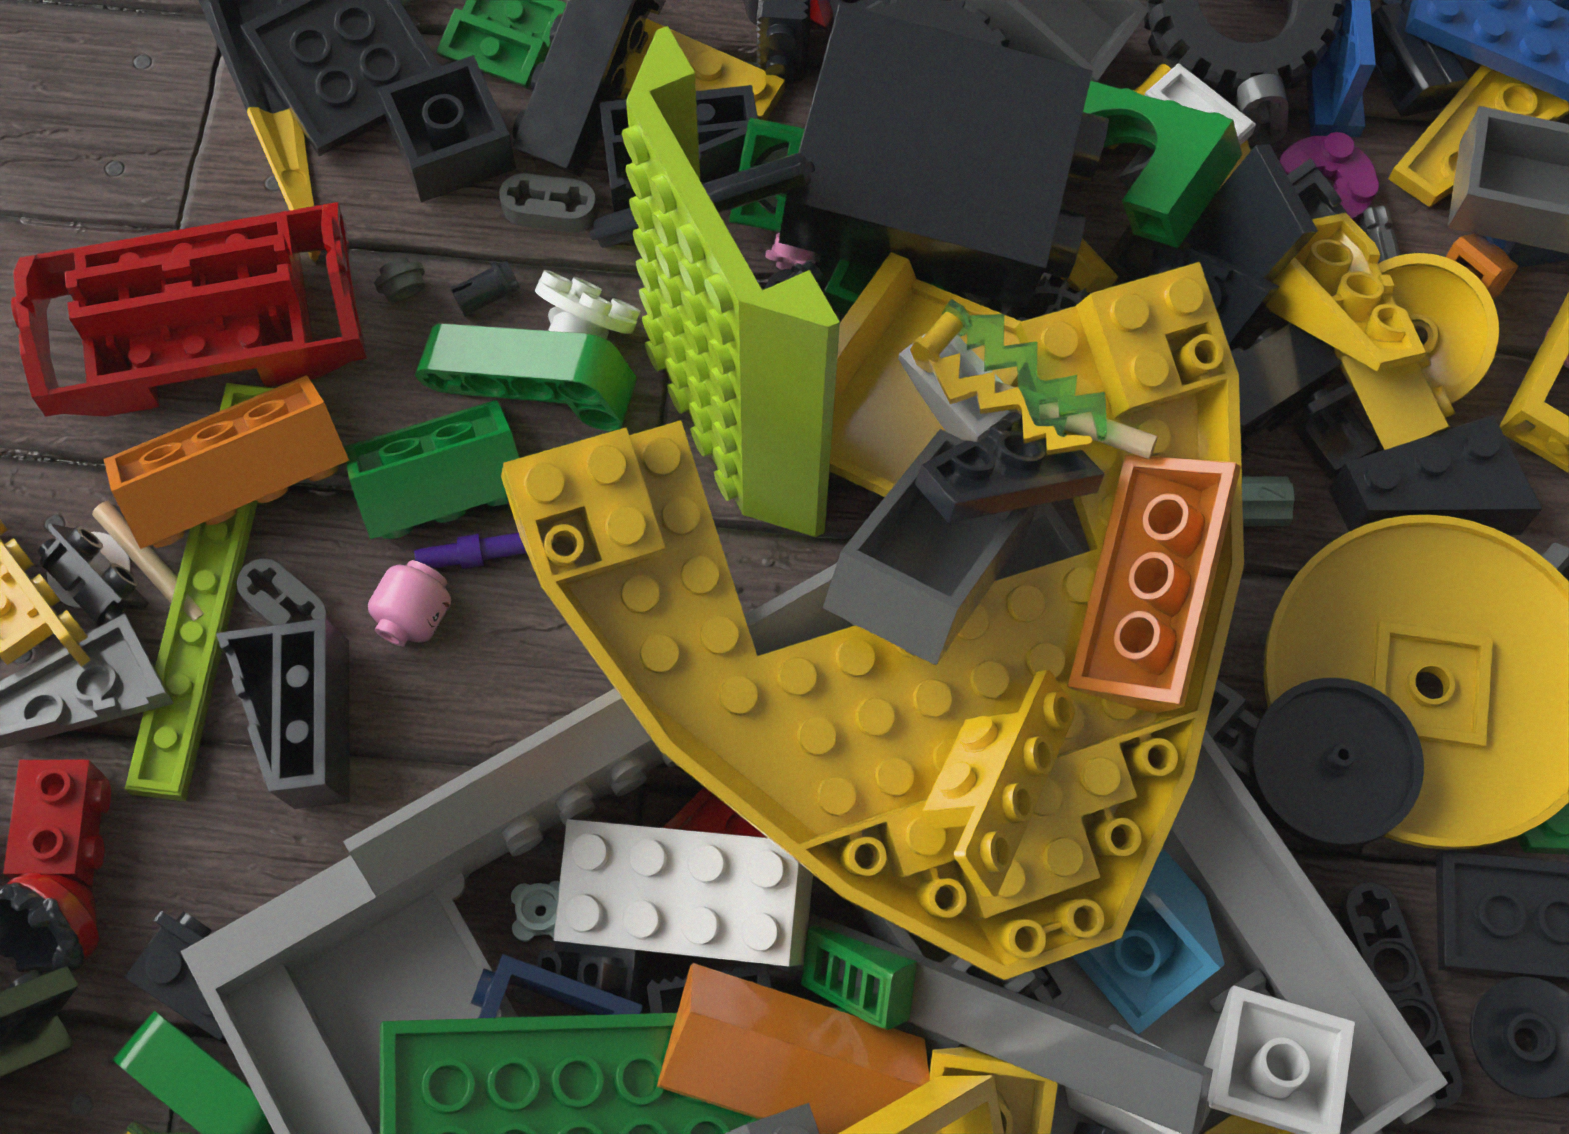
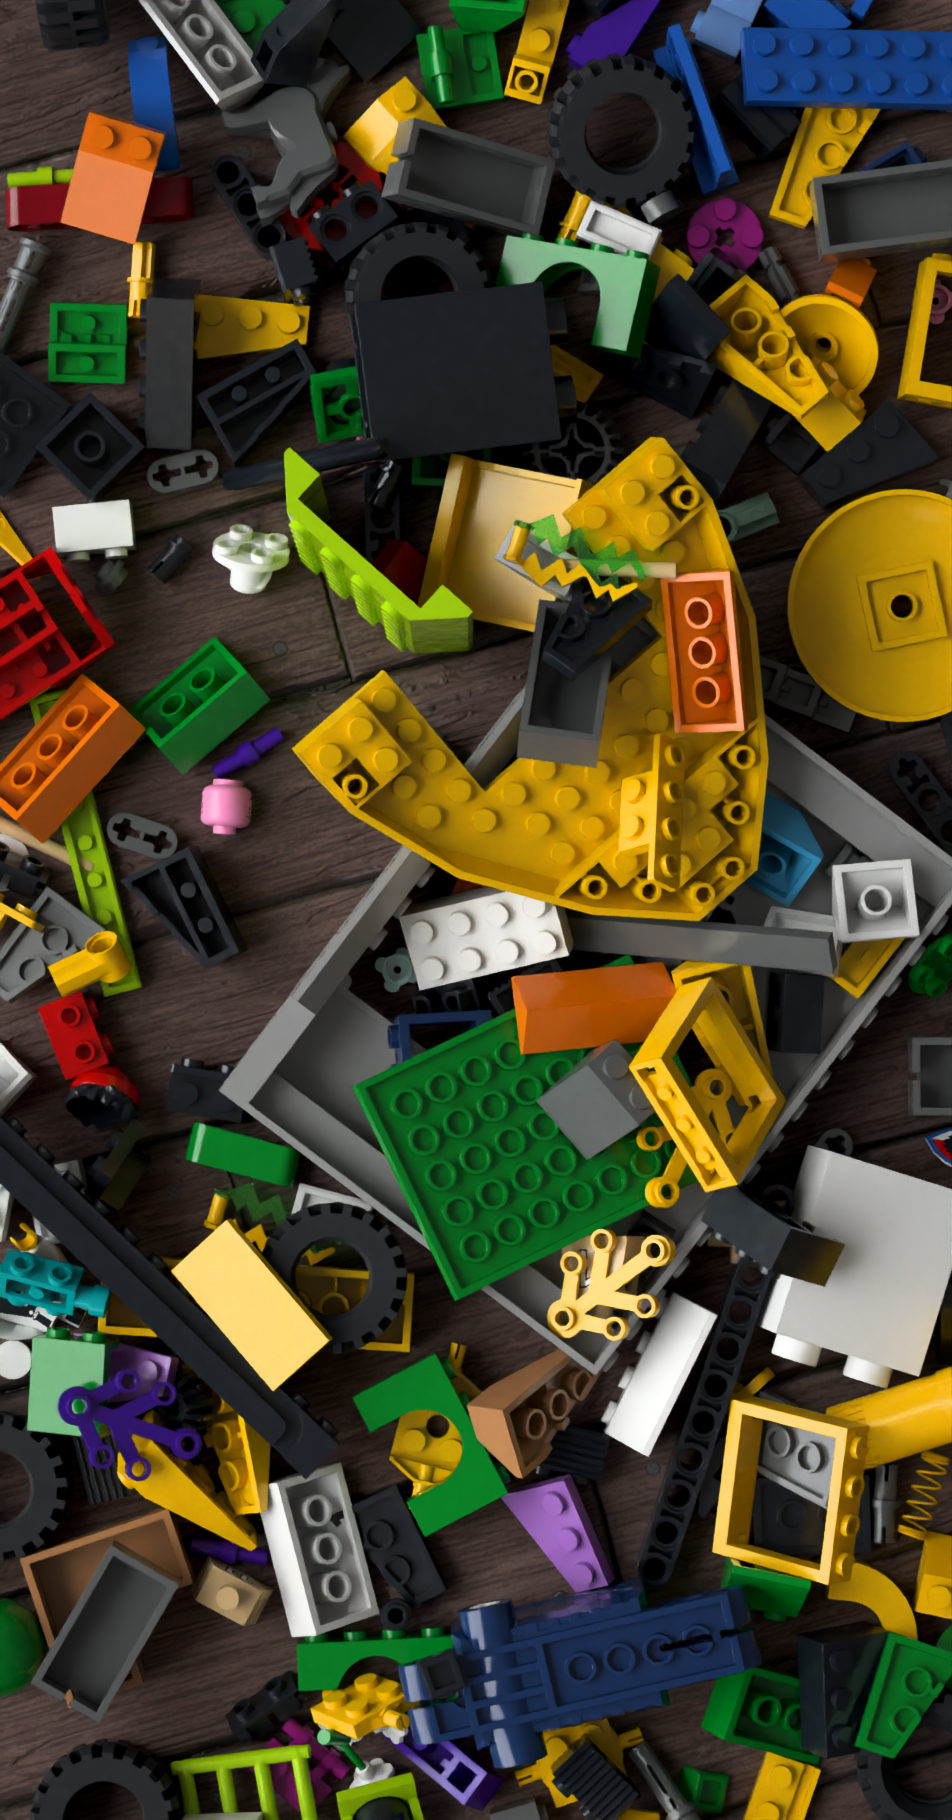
camera: 20 degrees left, 20 degrees up
(136, 728) = (100, 960): none -> yellow piece
(407, 220) = (94, 530): none -> white brick
(531, 366) = (230, 614): green beam -> none
(894, 971) = (630, 934): green slope -> none
(1336, 762) = (855, 690): black piece -> none

